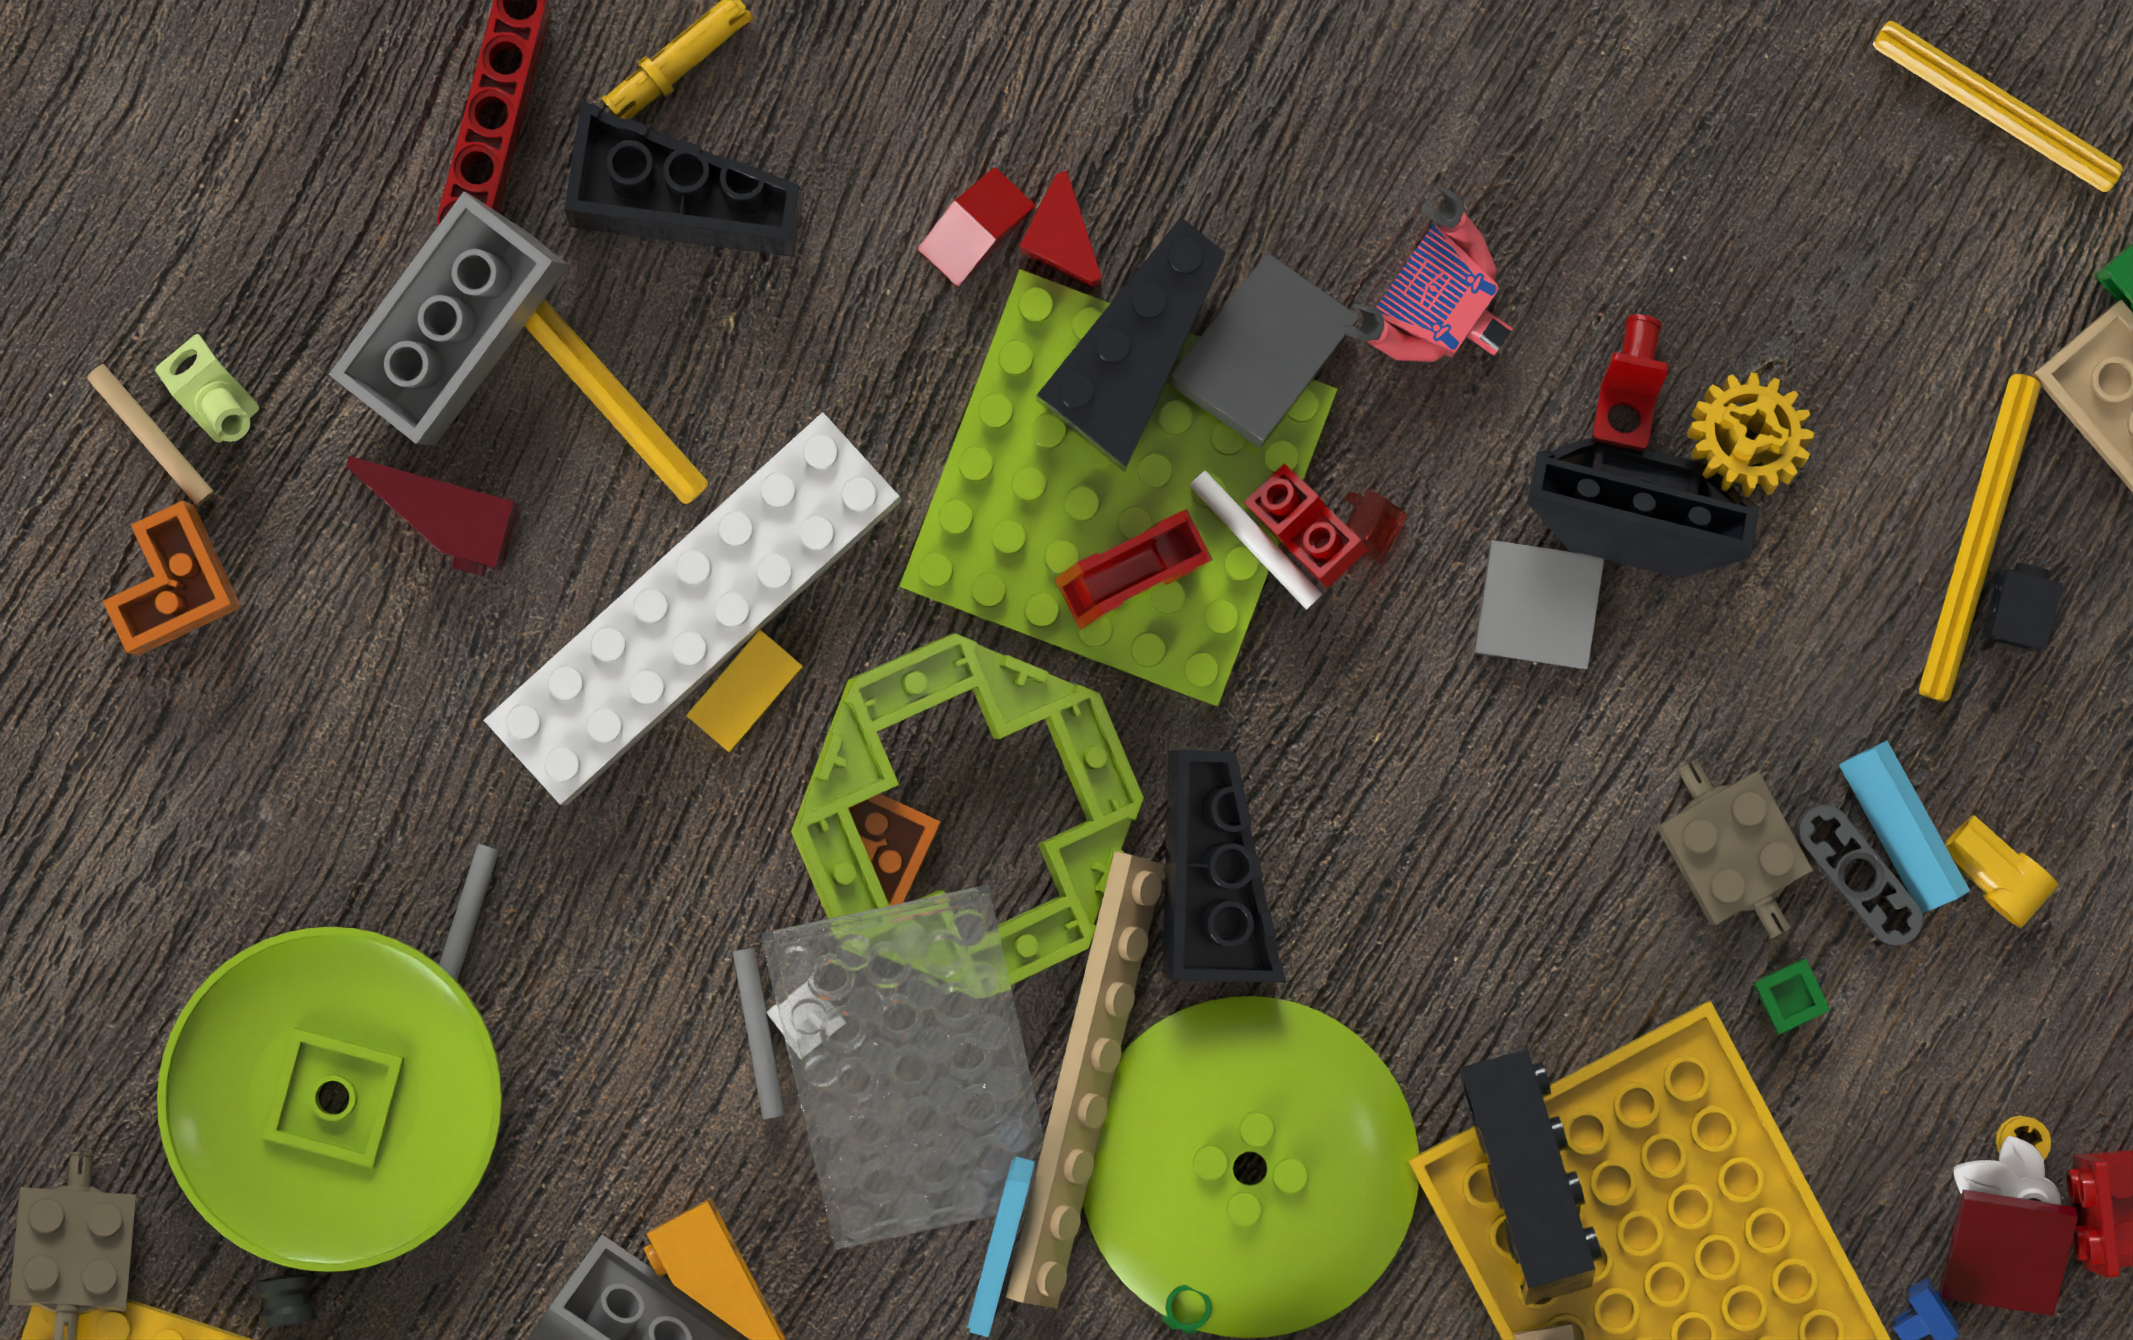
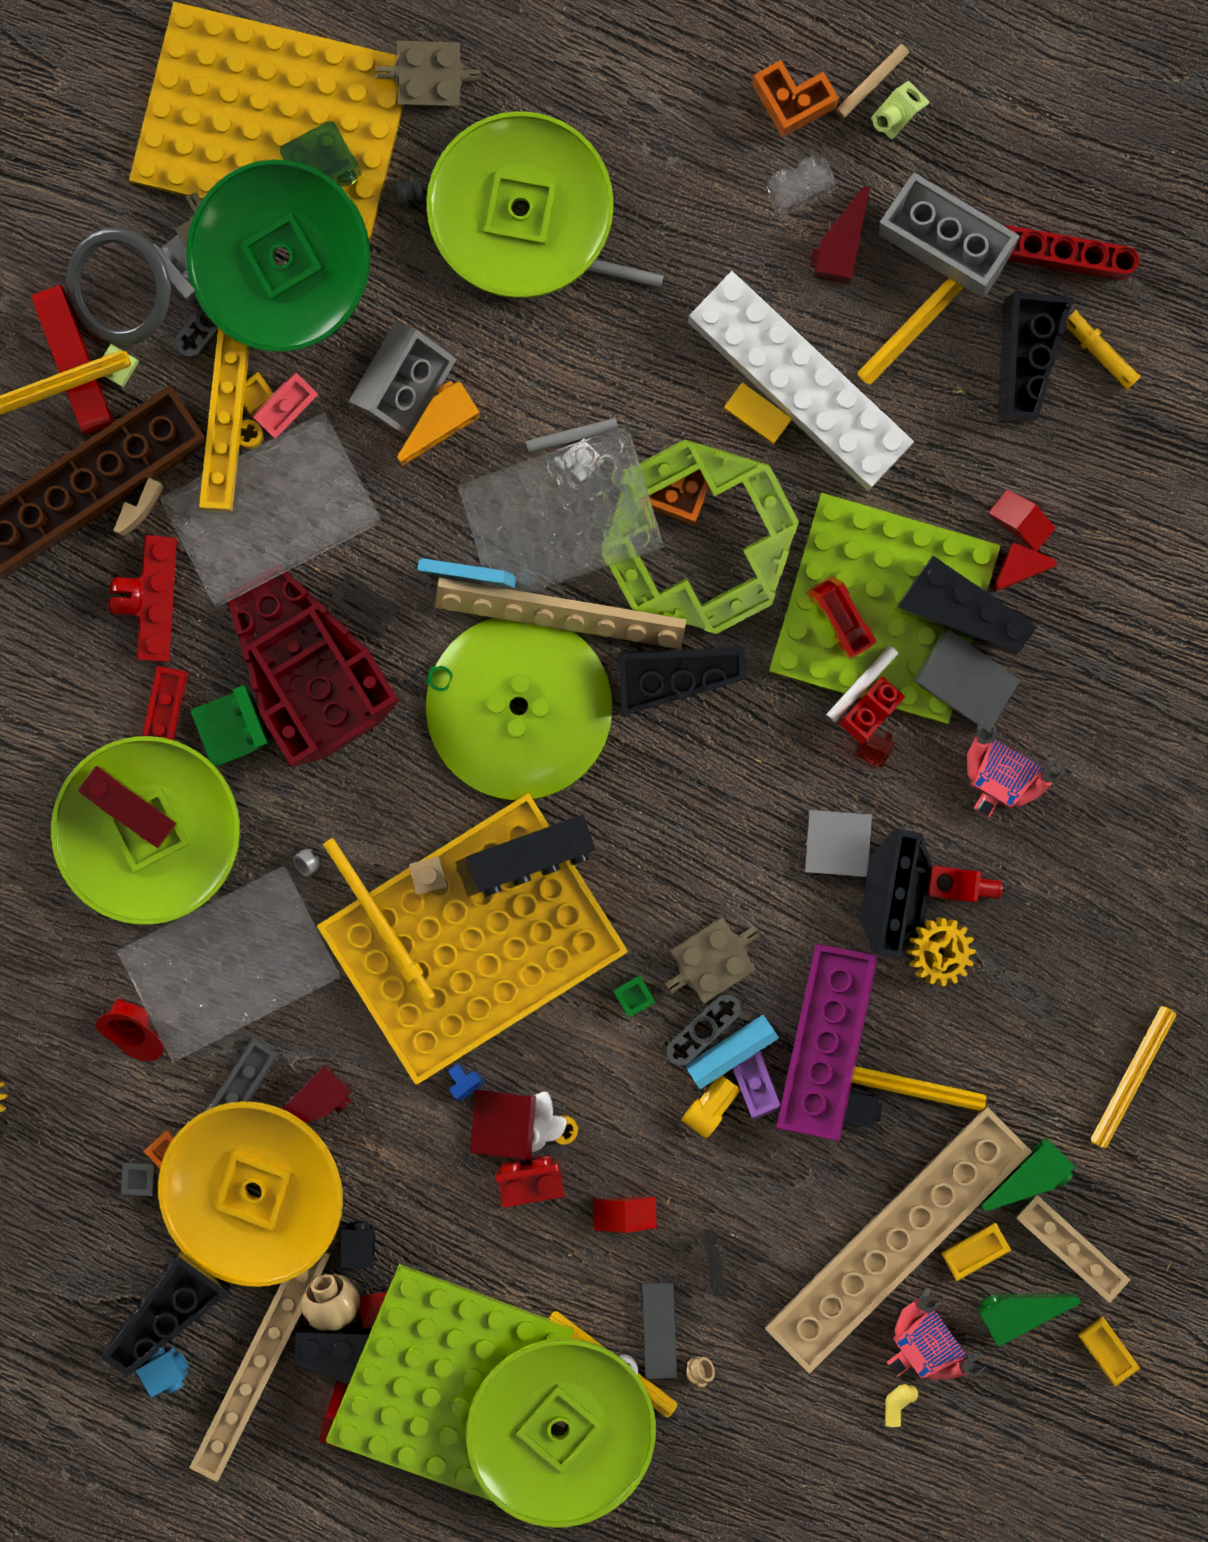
camera: 85 degrees right, 0 degrees up
(334, 580) = (801, 186): none -> clear brick
(1902, 653) = (827, 1042): none -> magenta plate
(1971, 785) = (757, 1086): none -> medium lavender plate

